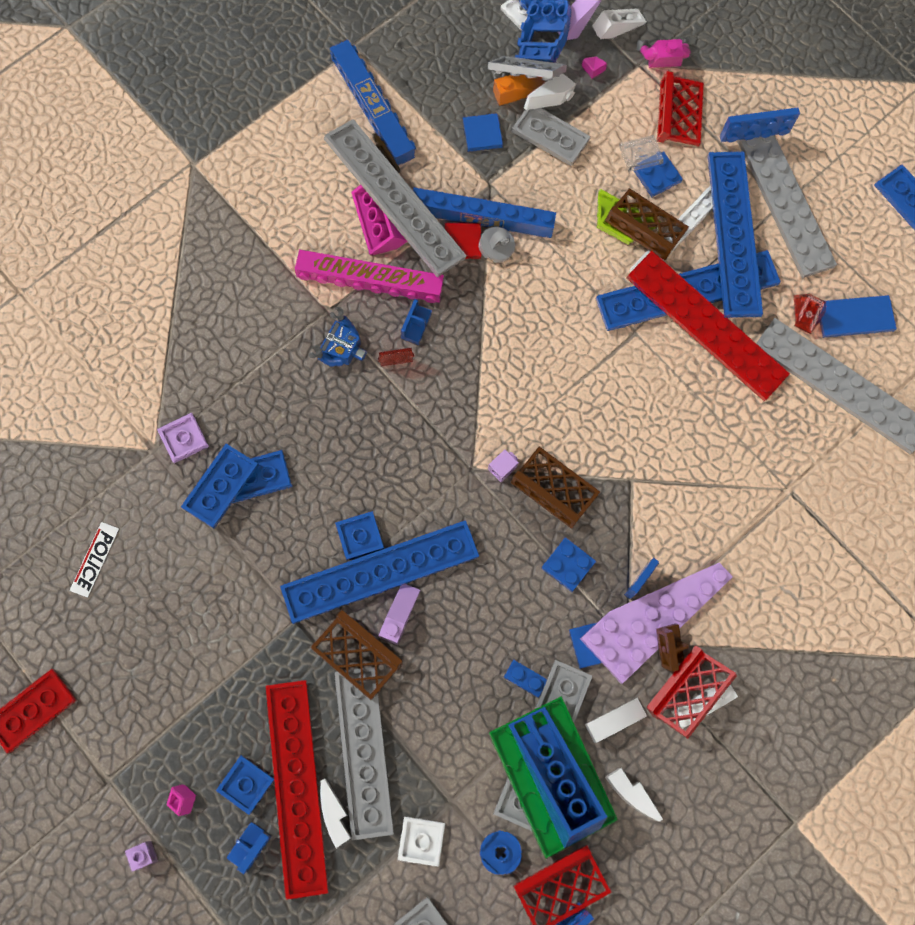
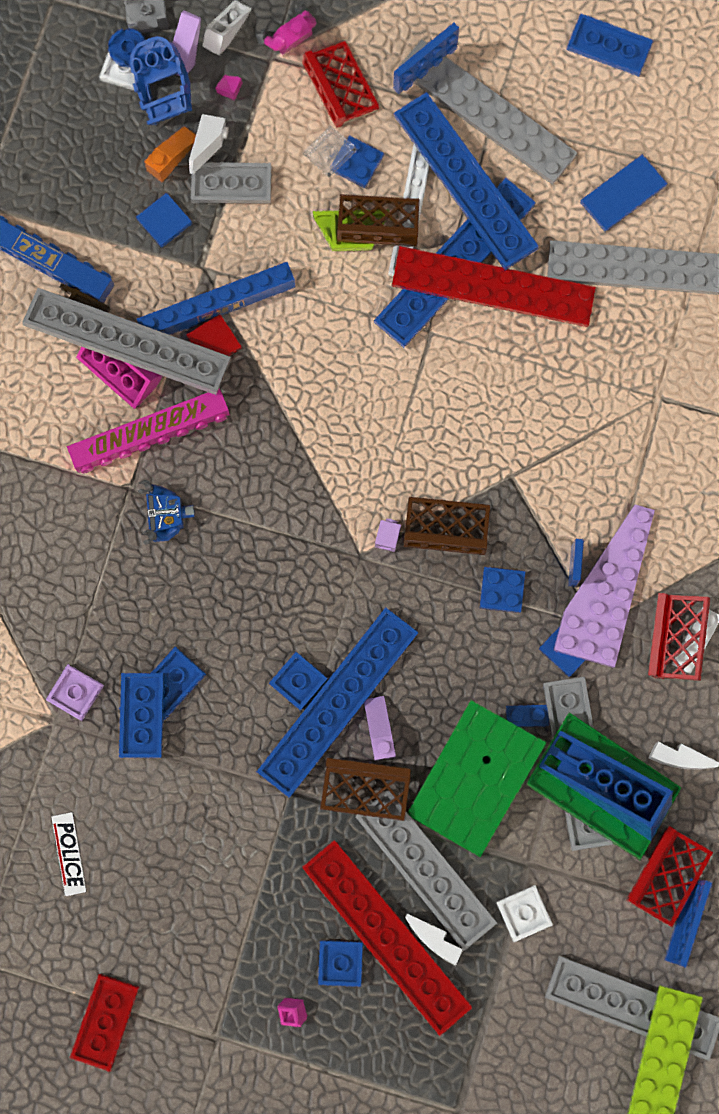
camera: 25 degrees left, 5 degrees up
(141, 856) = (290, 1080): lavender brick -> none
(248, 847) = (377, 1014): blue panel -> none
(396, 357) = (225, 494): clear red piece -> none
(415, 323) = (222, 450): blue panel -> none
(435, 714) = (464, 795): none -> green piece
(488, 853) = (608, 872): blue plate -> none
(496, 244) = (249, 325): light grey tile -> none
(528, 67) = (168, 130): light grey plate -> none
(615, 720) = (628, 703): white slope -> none
(670, 646) = (637, 607): reddish brown panel -> none
(808, 311) = (578, 217): clear red slope -> none

